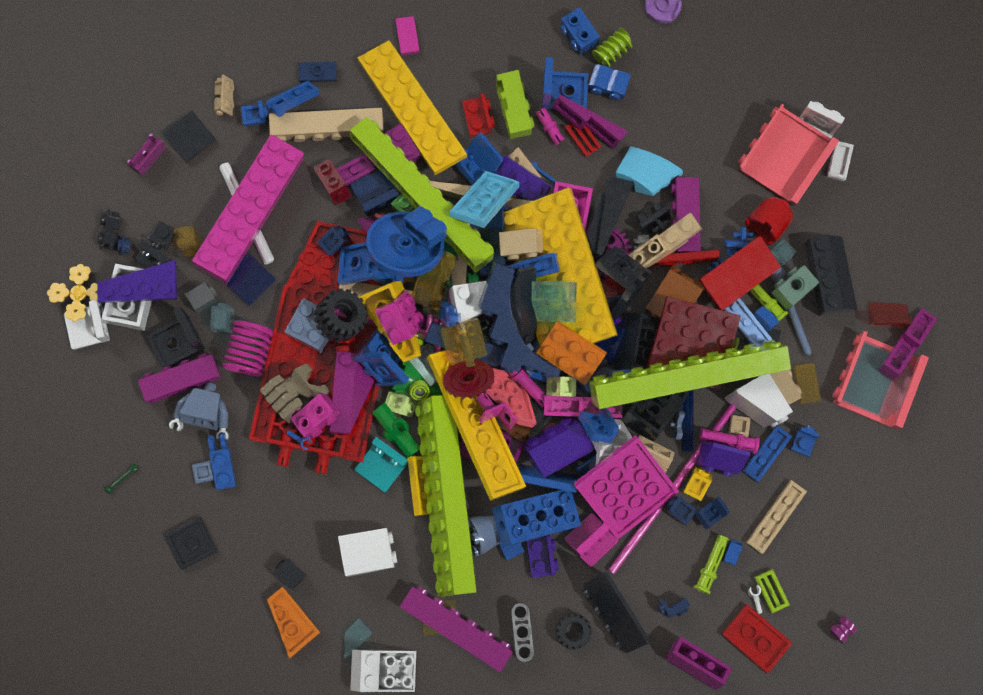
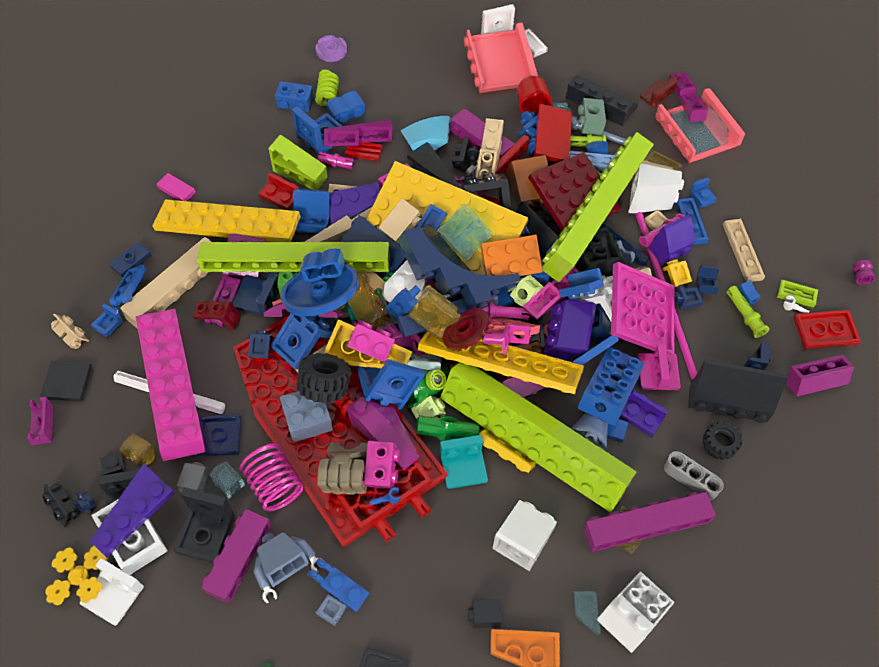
camera: 45 degrees left, 20 degrees down
(484, 199) = (343, 221): medium azure tile -> none

